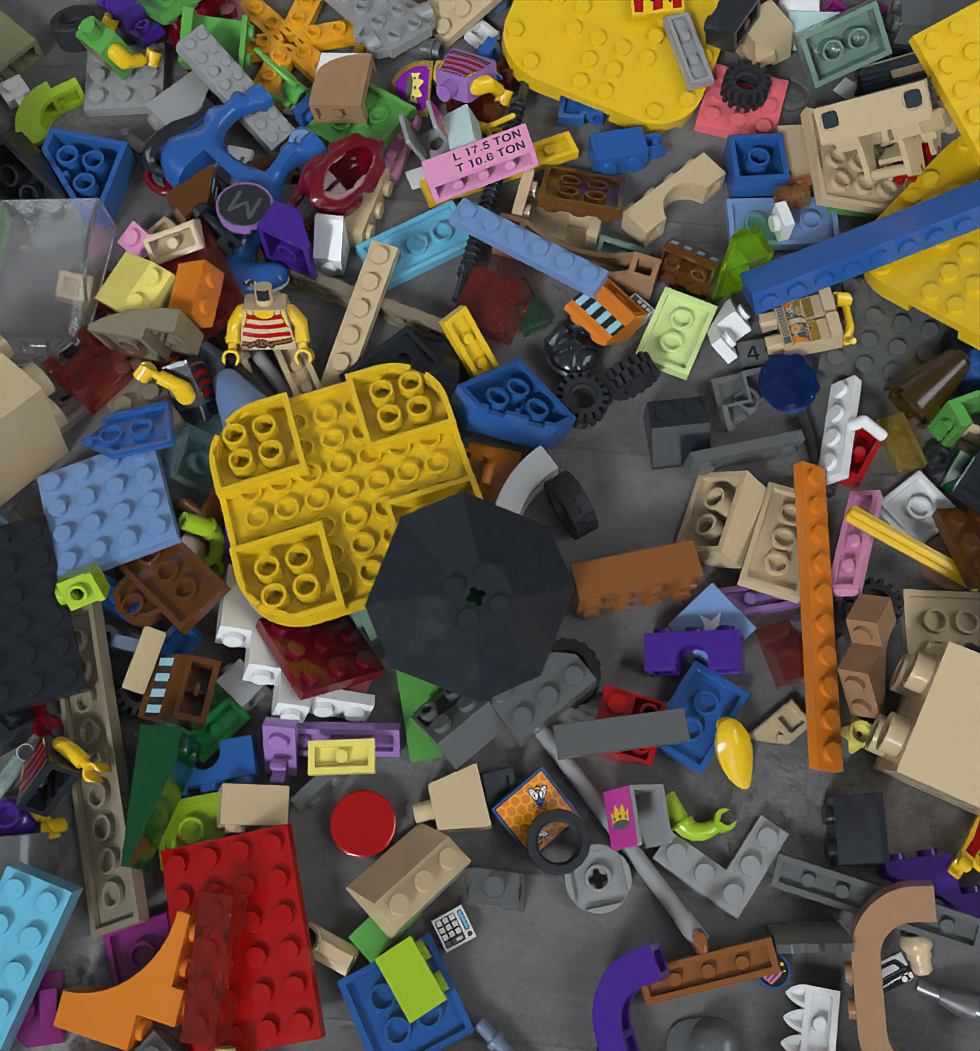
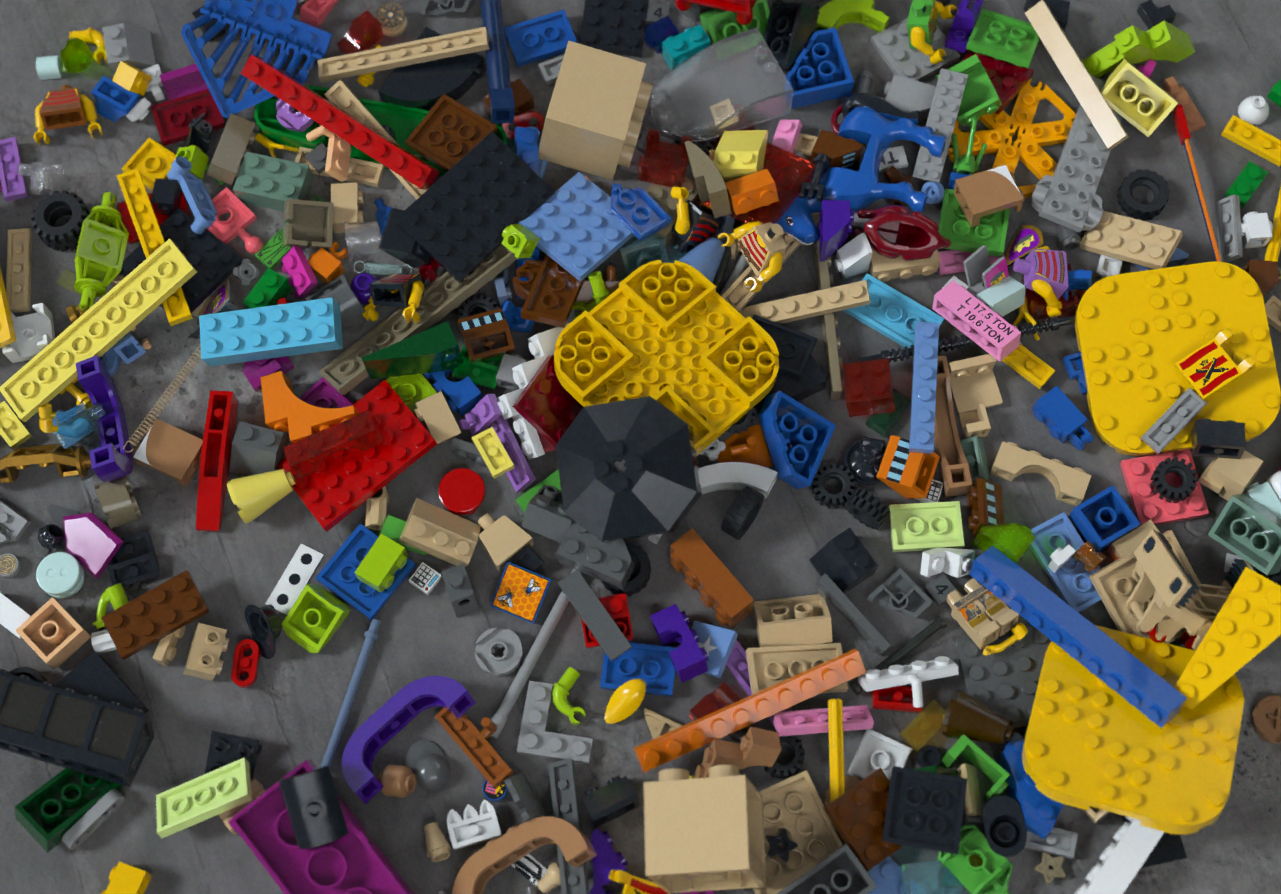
camera: 65 degrees right, 0 degrees up
(144, 660) = (492, 302): tan slope -> none
(174, 241) = (788, 156): tan slope -> none
(242, 206) = (837, 183): black tile -> none
(468, 342) = (825, 386): yellow plate -> none
(580, 830) = (501, 594): black tyre -> none
(582, 193) = (1000, 404): reddish brown plate -> none
(637, 816) = (556, 665): piece -> none
(788, 383) = (926, 622): clear blue piece -> none

